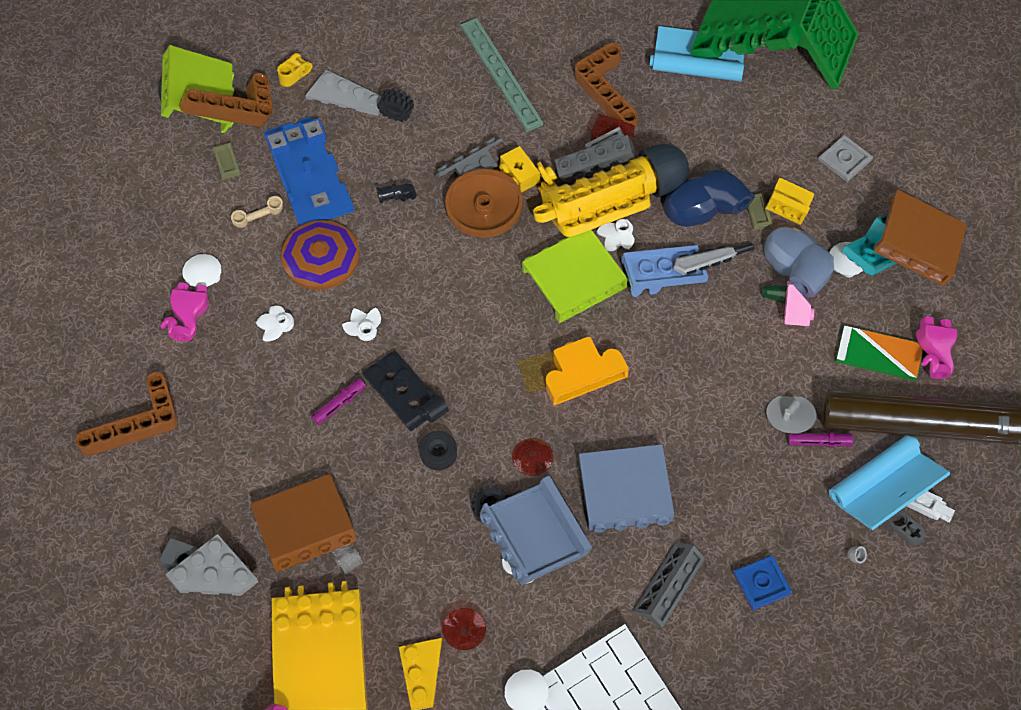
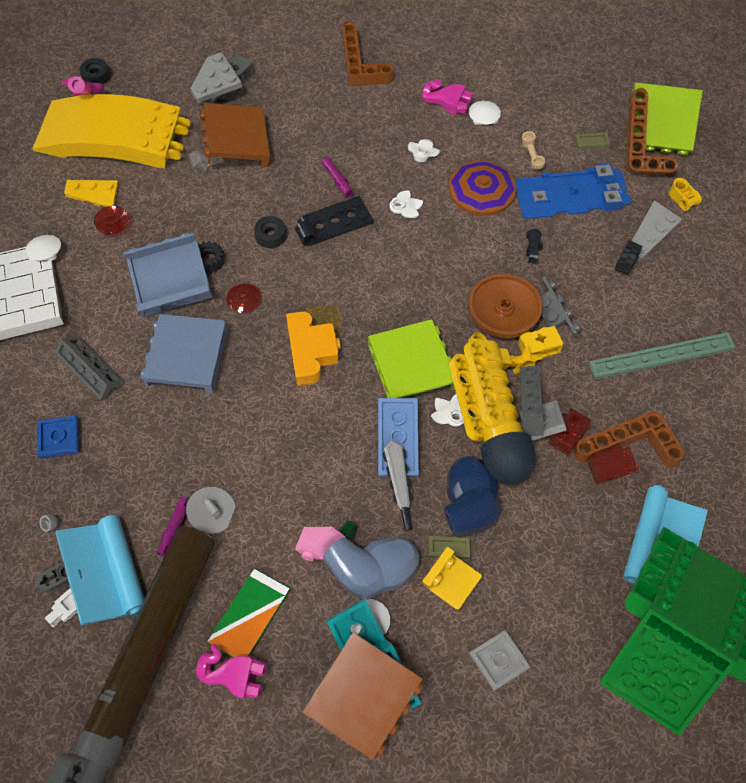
camera: 100 degrees right, 0 degrees up
(639, 95) = (612, 465): none -> clear red brick

